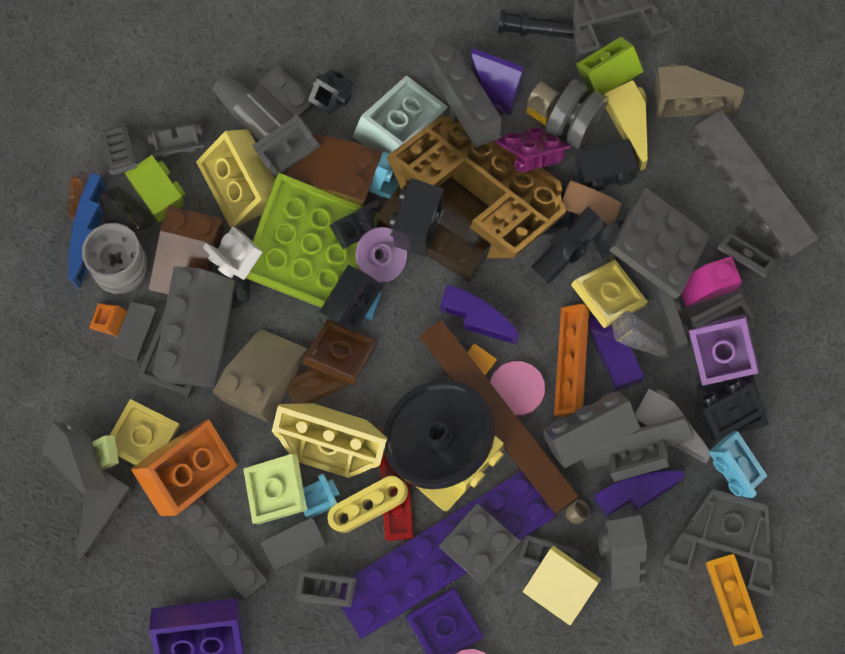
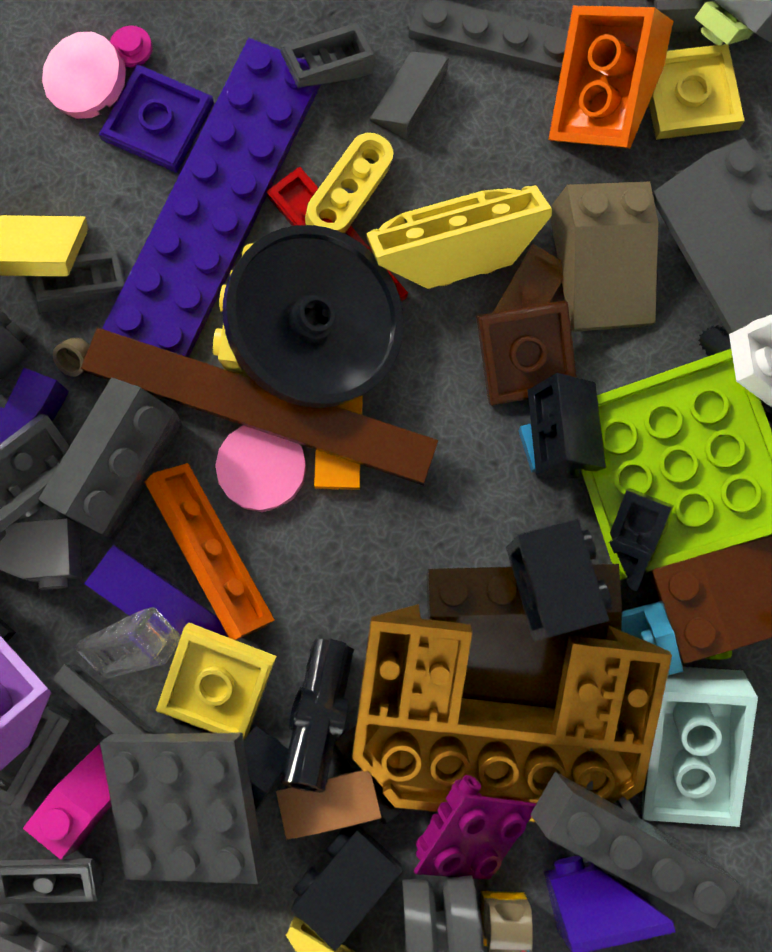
camera: 140 degrees right, 5 degrees up
(275, 489) = (478, 129): yellowish green plate -> none
(320, 496) = (419, 158): medium azure bracket -> none
(391, 259) = (577, 497): lavender dish -> none
(478, 315) = (379, 528): dark purple slope -> none
(479, 544) = (170, 225): dark grey plate -> none

